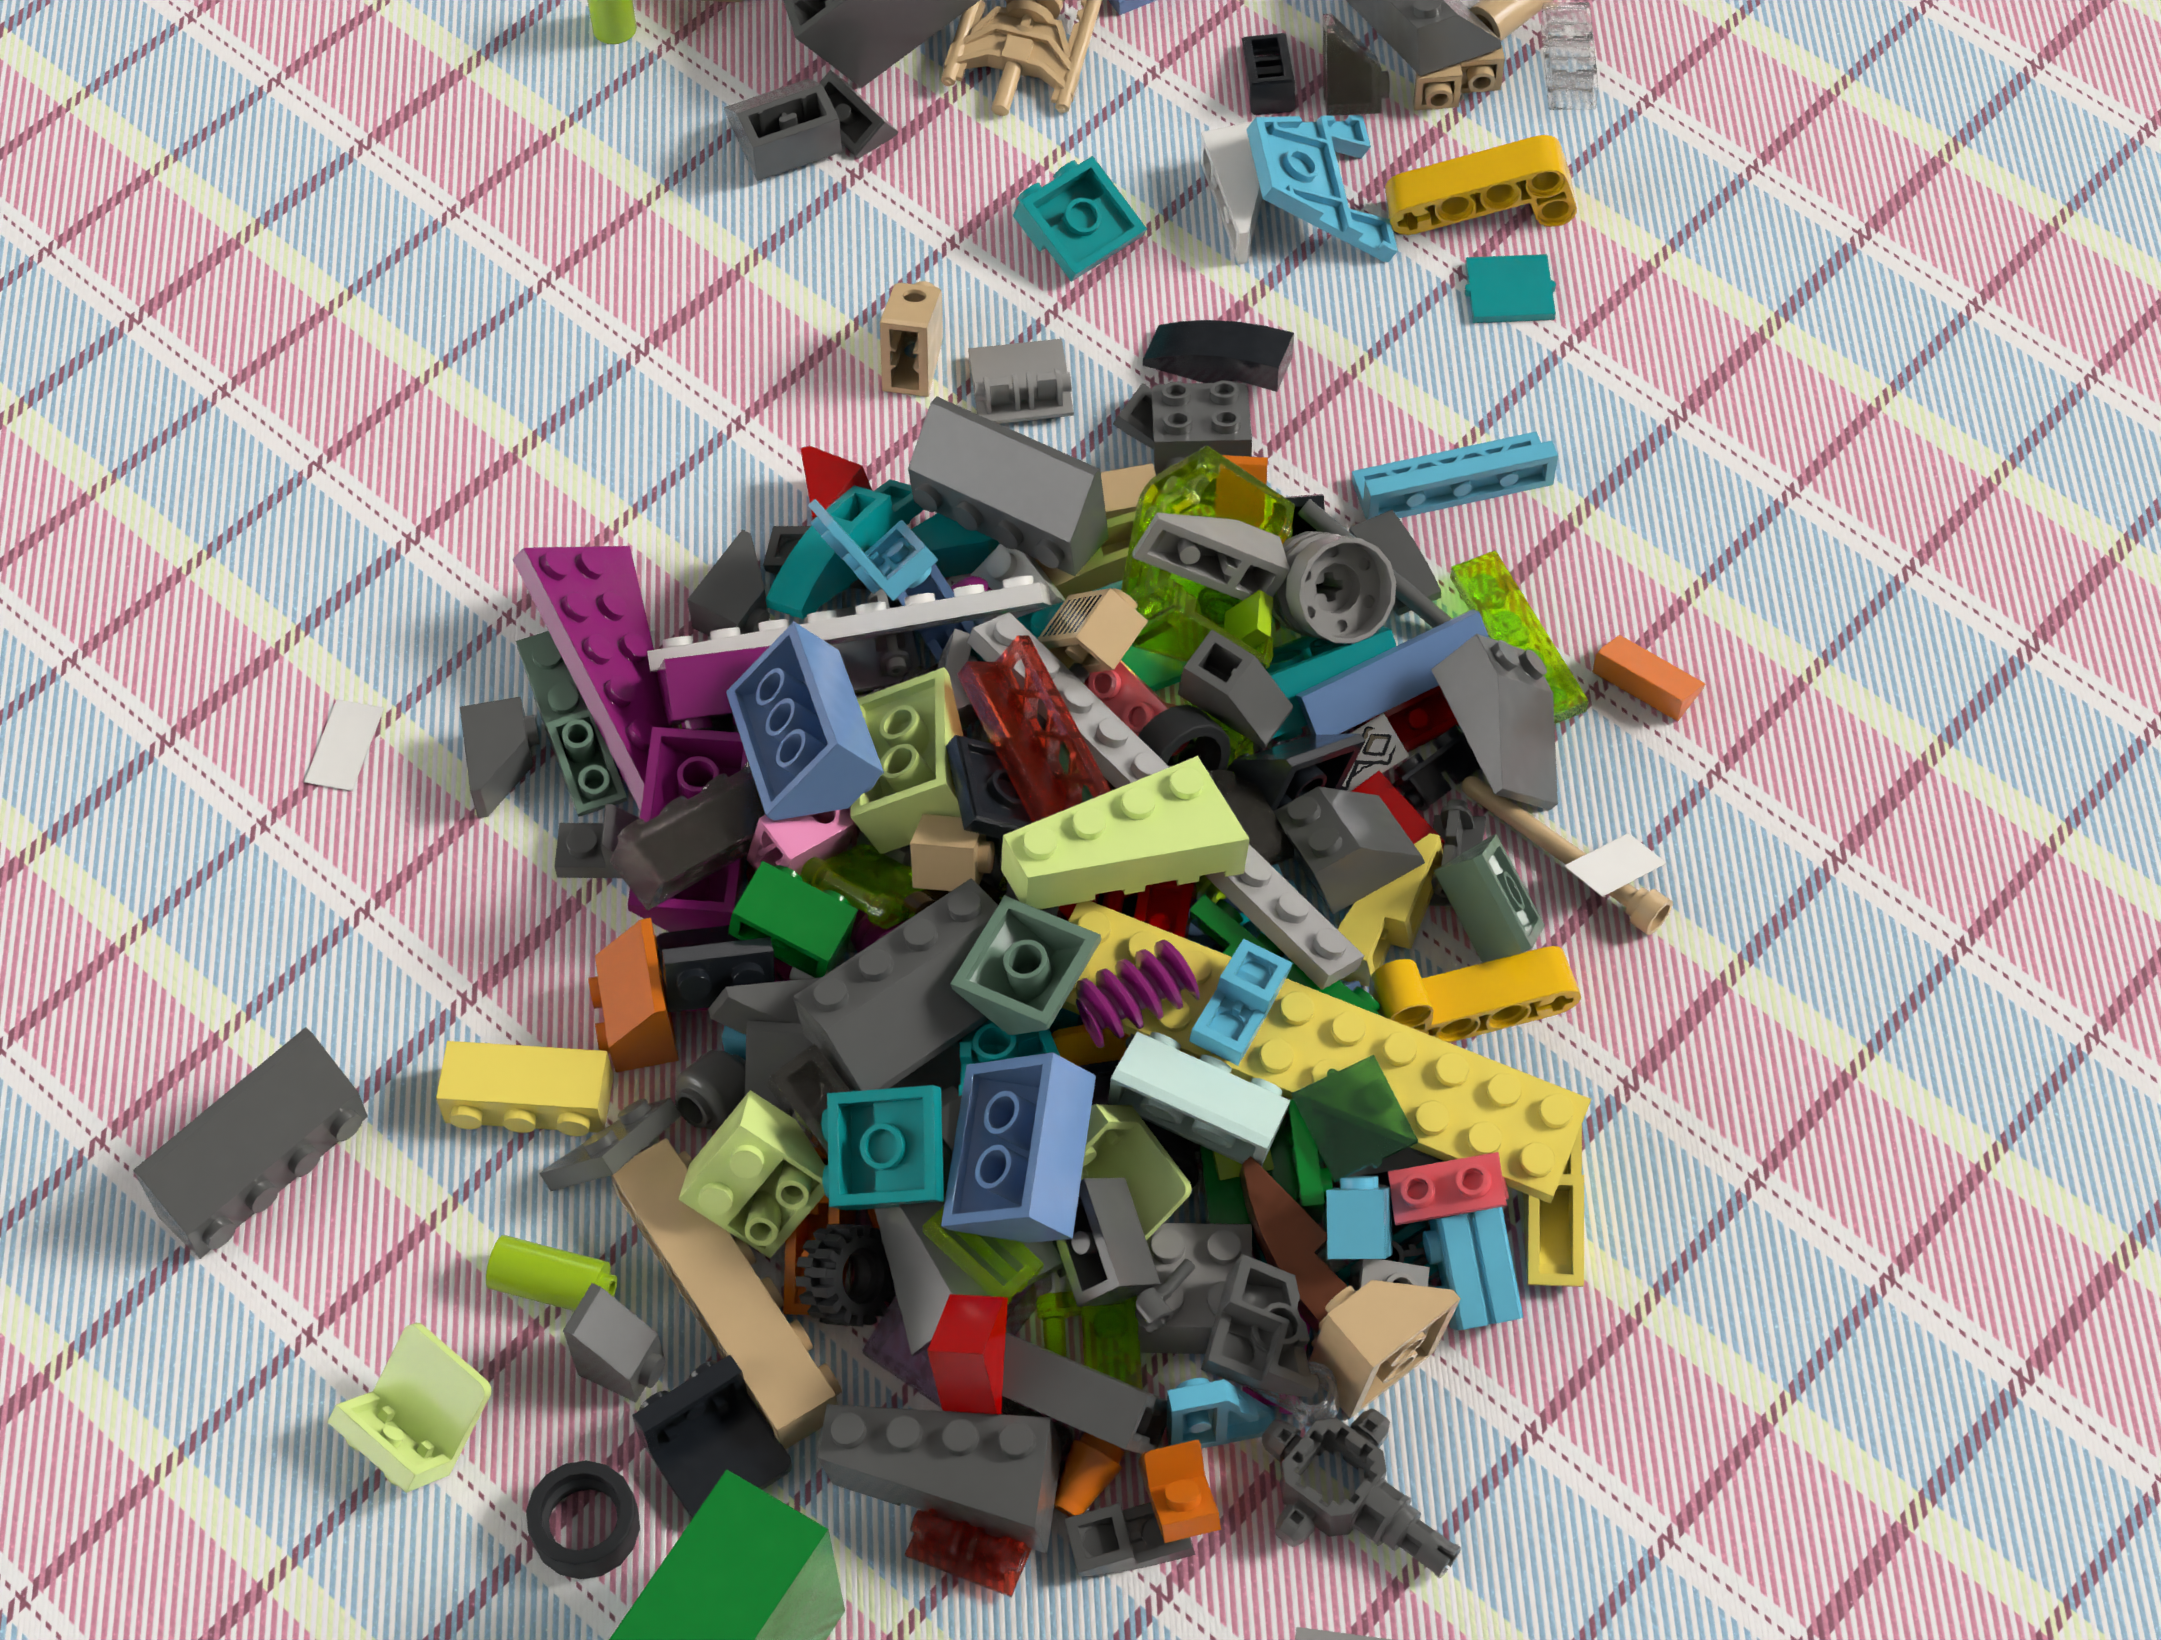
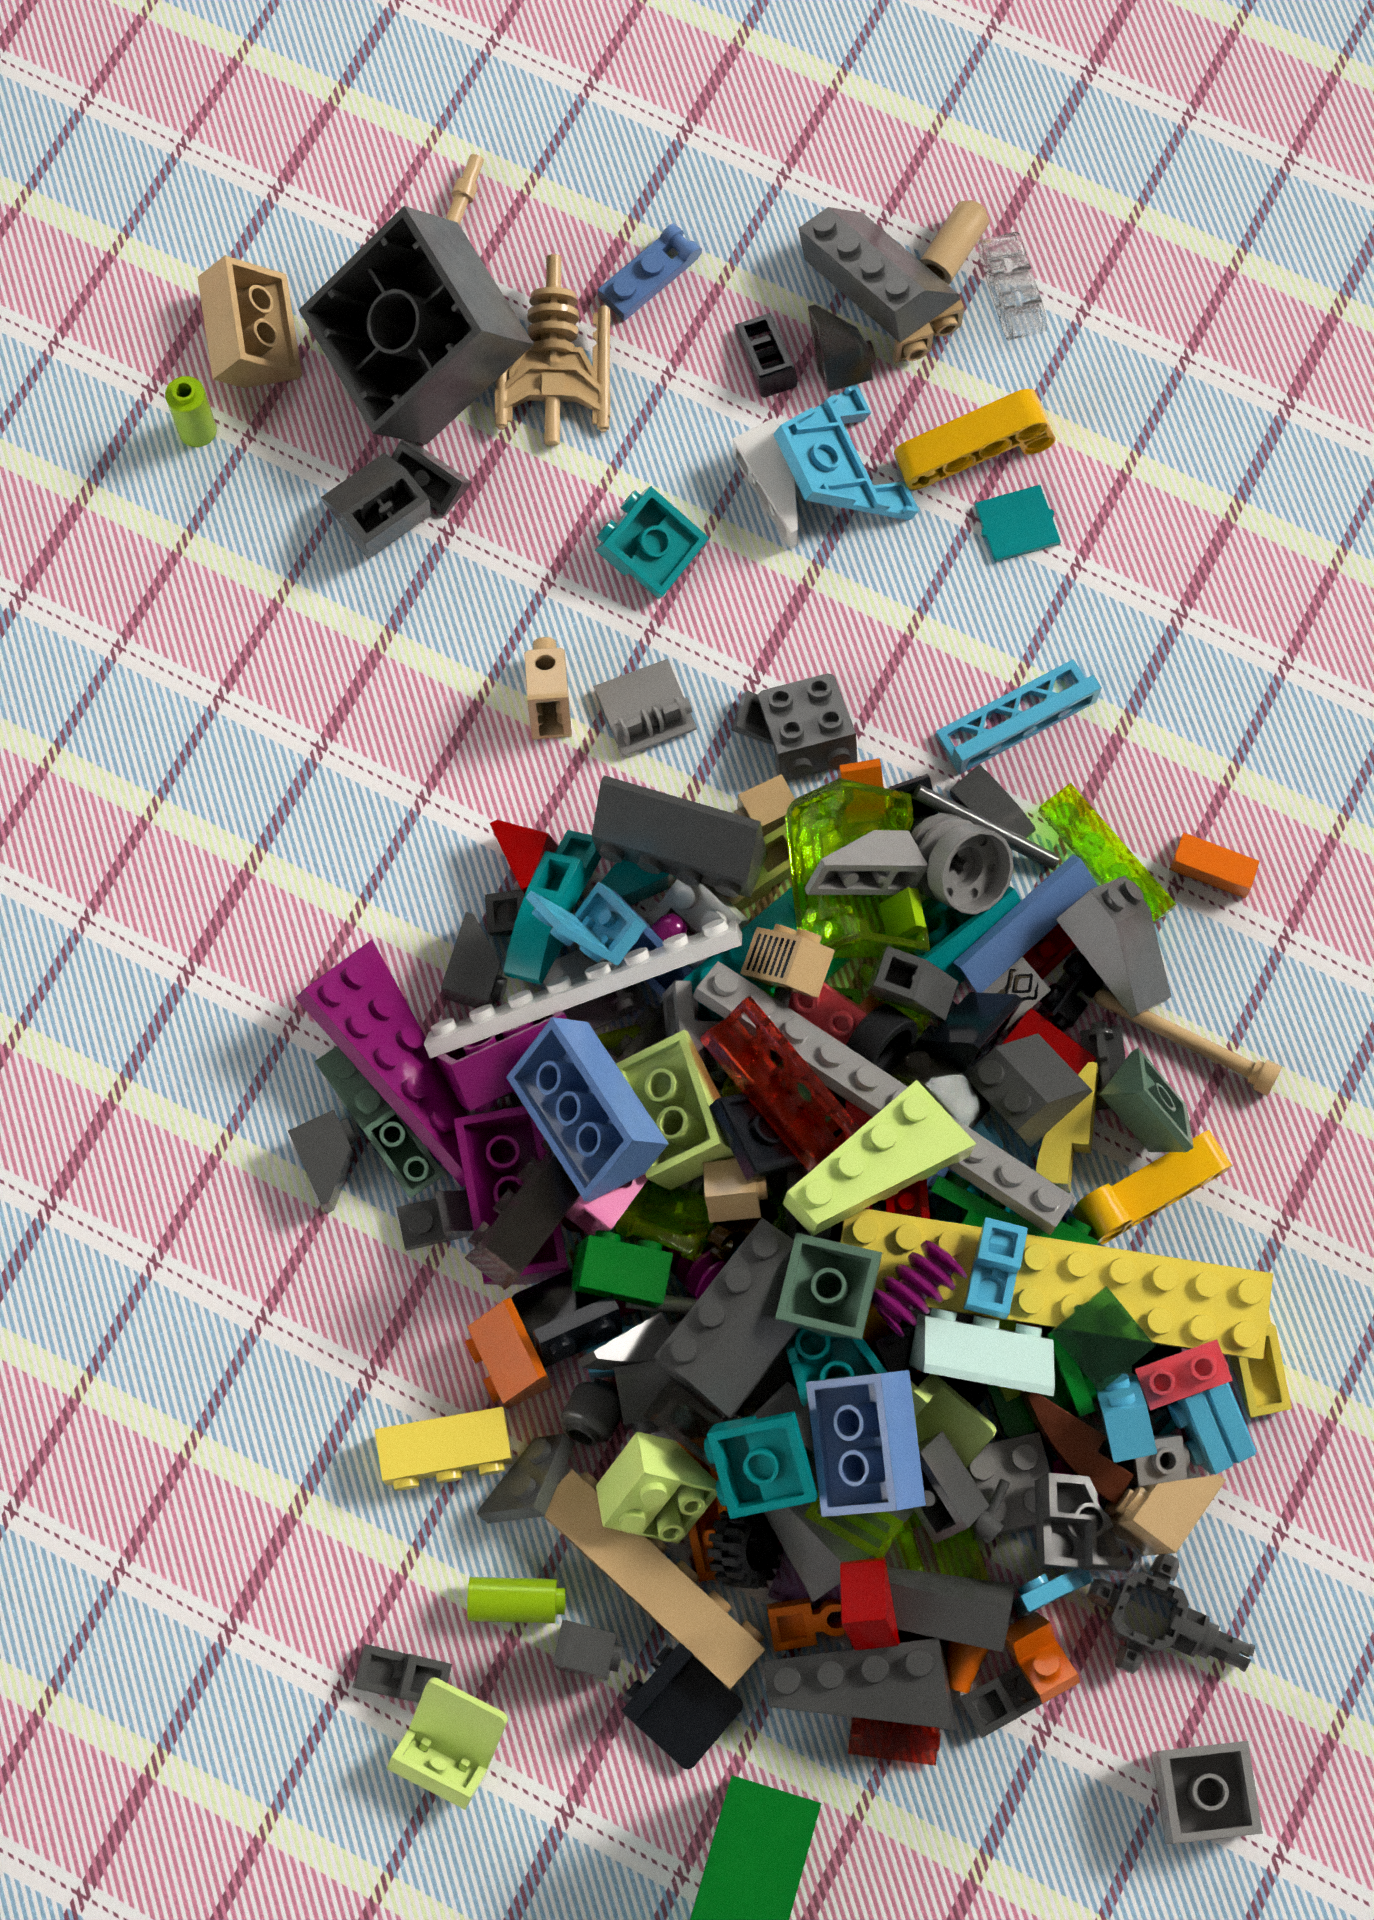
camera: 15 degrees left, 15 degrees up
(251, 1144) = (251, 1556): dark grey slope -> none
(344, 745) = (196, 1174): white sticker -> none
(374, 1325) = (397, 1673): none -> dark grey slope
(564, 1482) = (577, 1766): black tyre -> none
(889, 1383) = (796, 1623): none -> orange plate
(1222, 352) = (801, 645): black slope -> none
(1615, 864) = (1230, 1043): white sticker -> none

